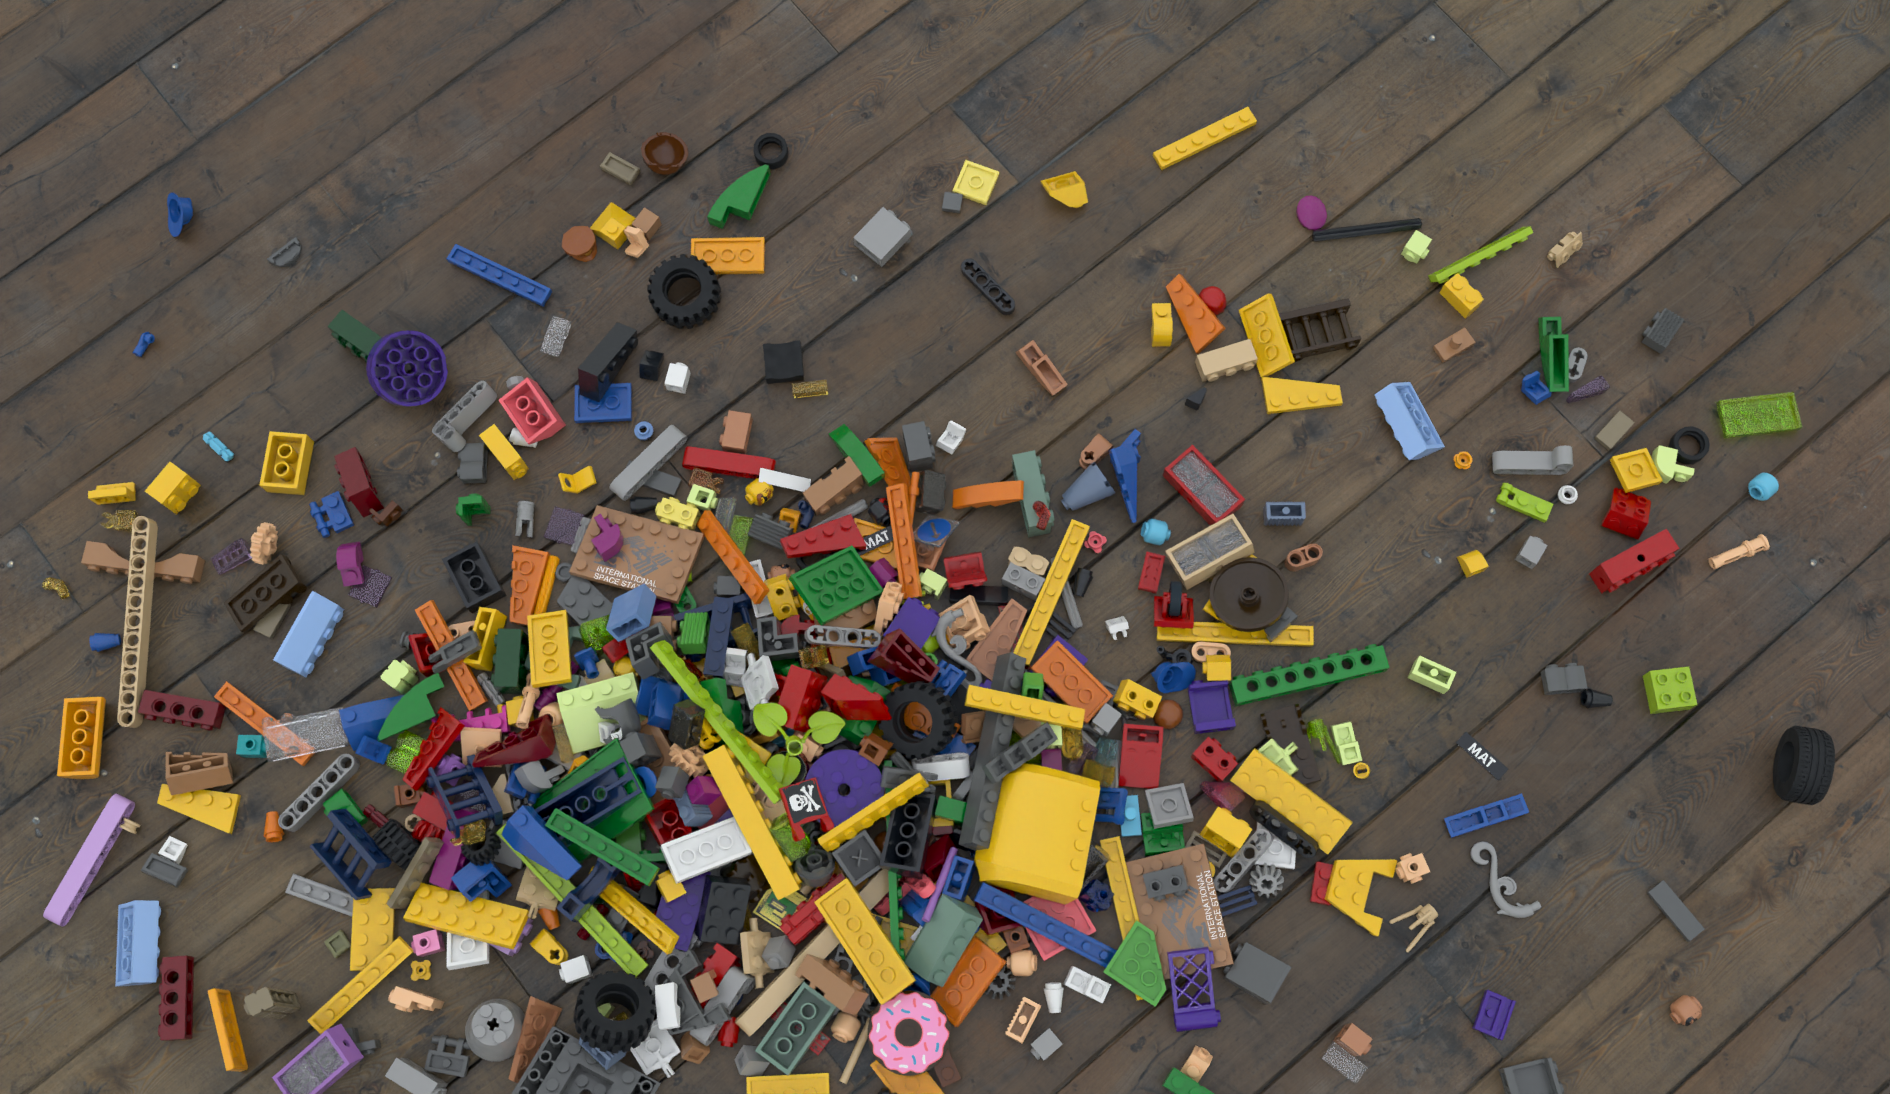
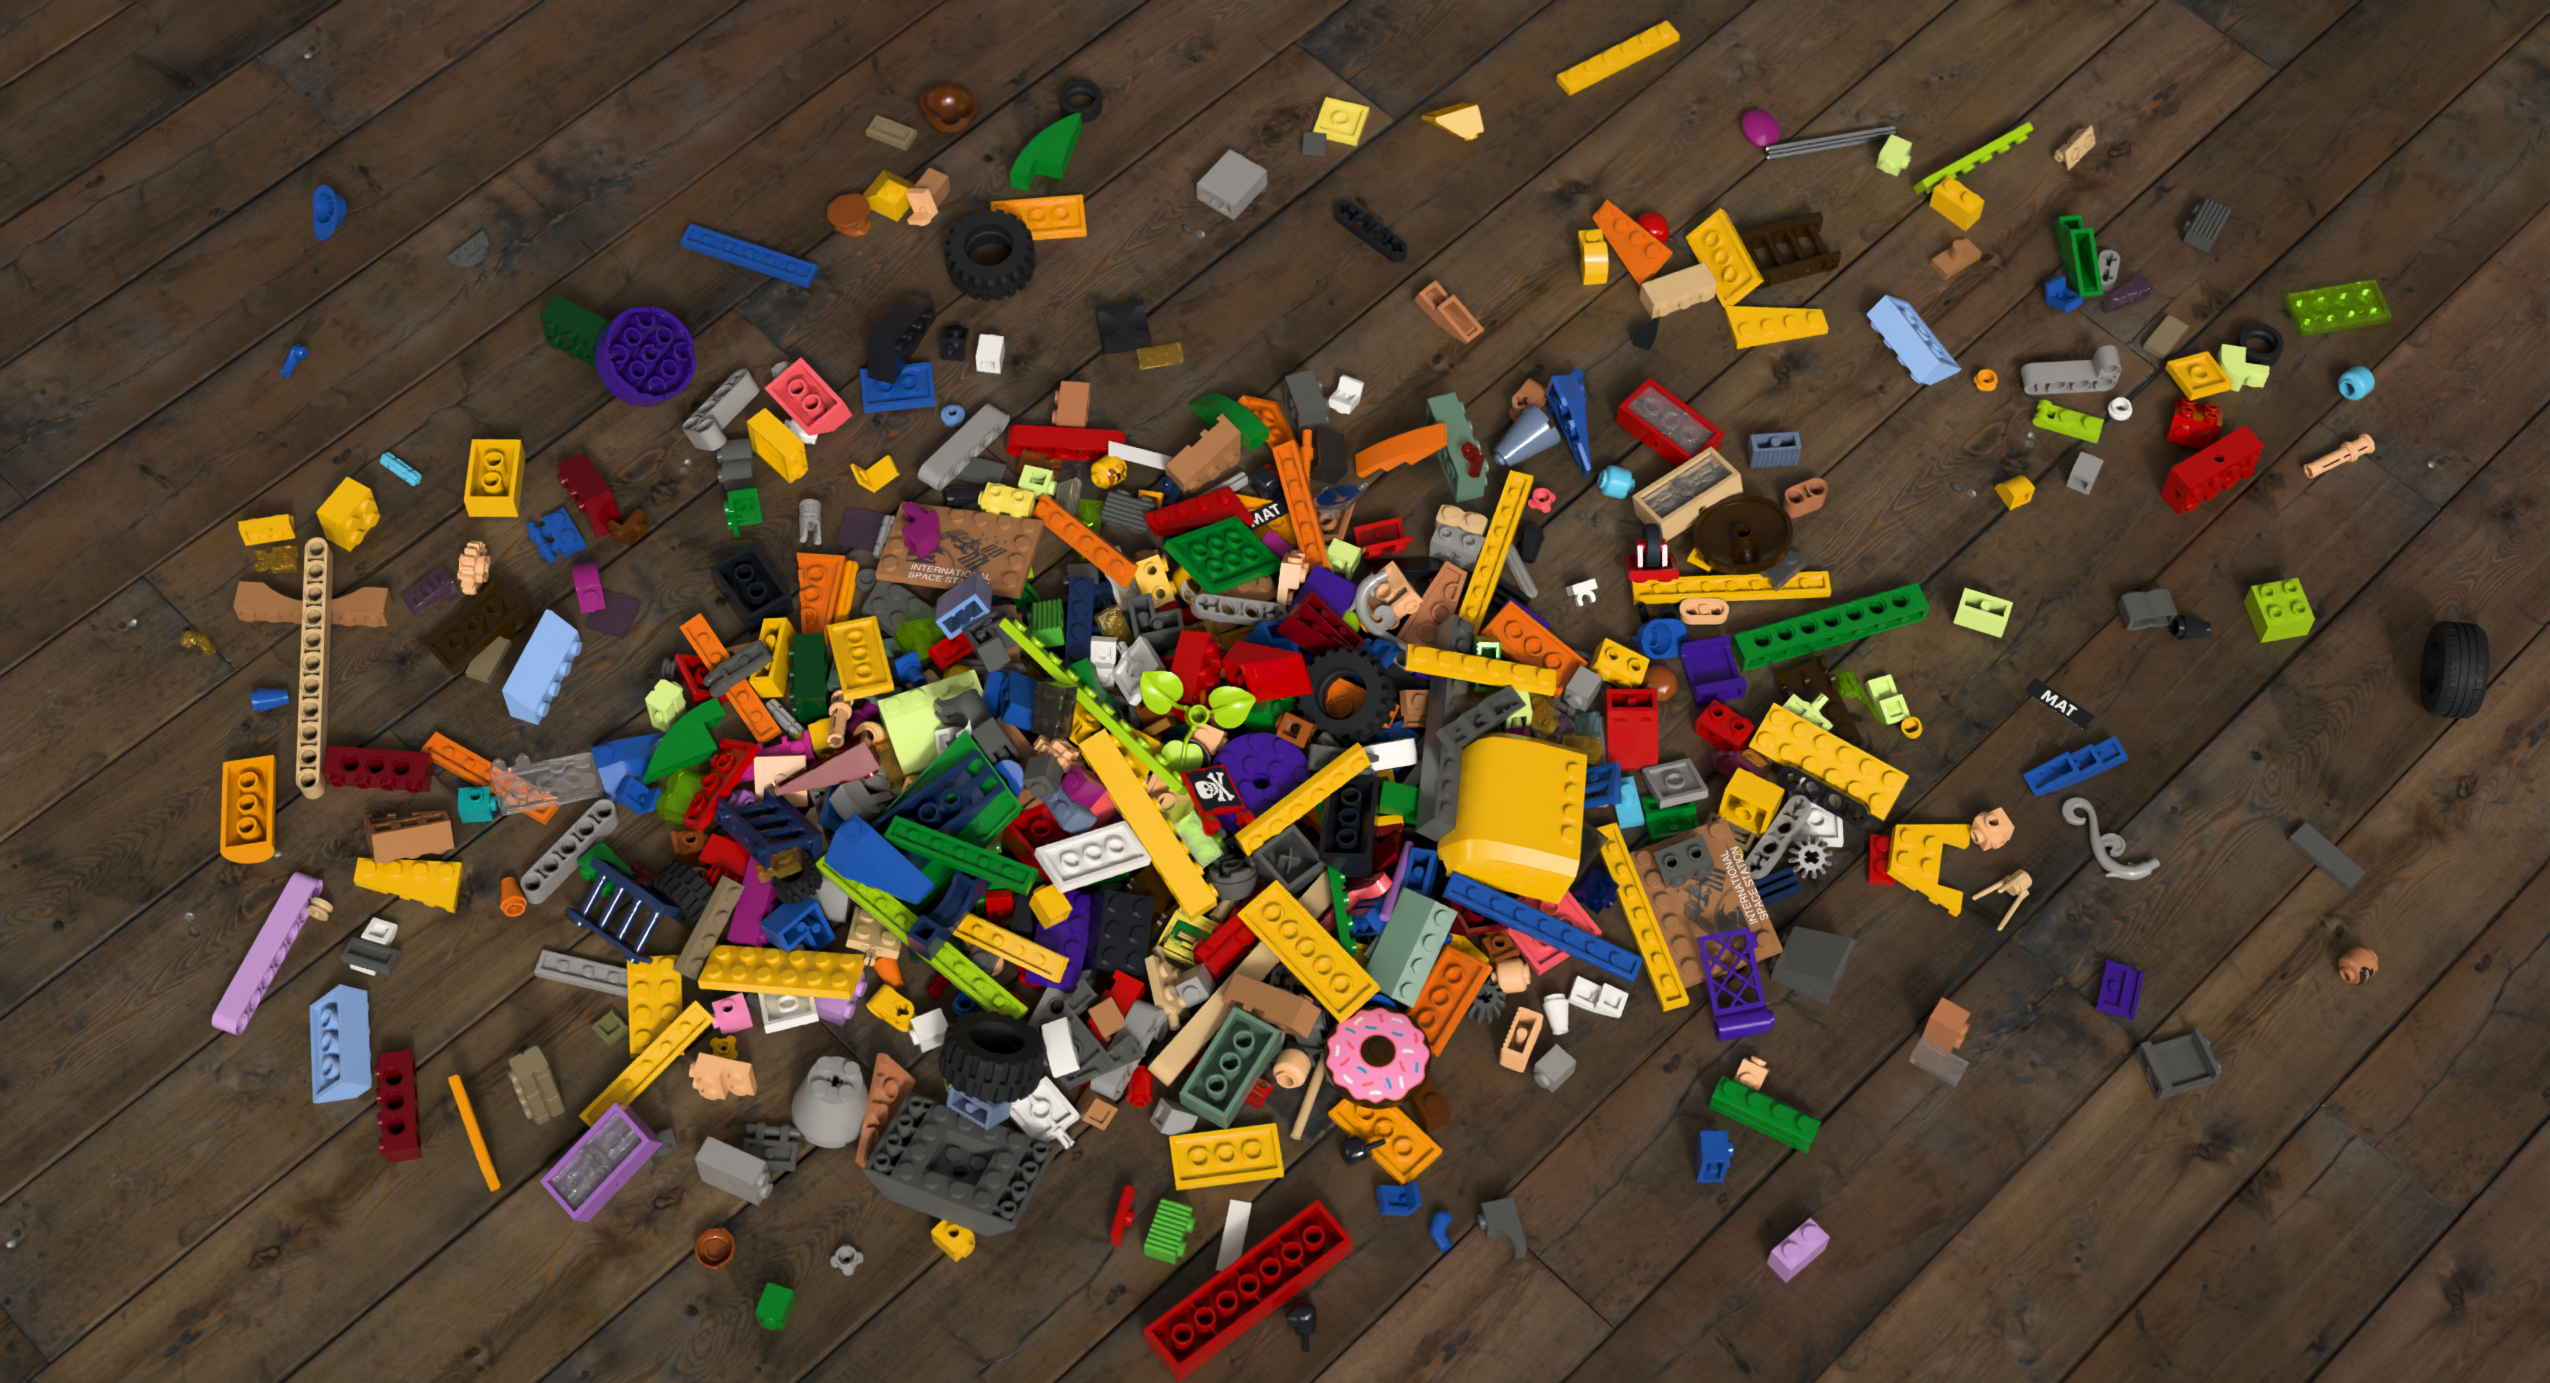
camera: 10 degrees left, 15 degrees down
(555, 336) = (829, 318): clear slope -> none
(1138, 965) = (1661, 962): bright green plate -> none
(1151, 572) = (1616, 528): red plate -> none
(1217, 667) = (1714, 622): yellow brick -> none

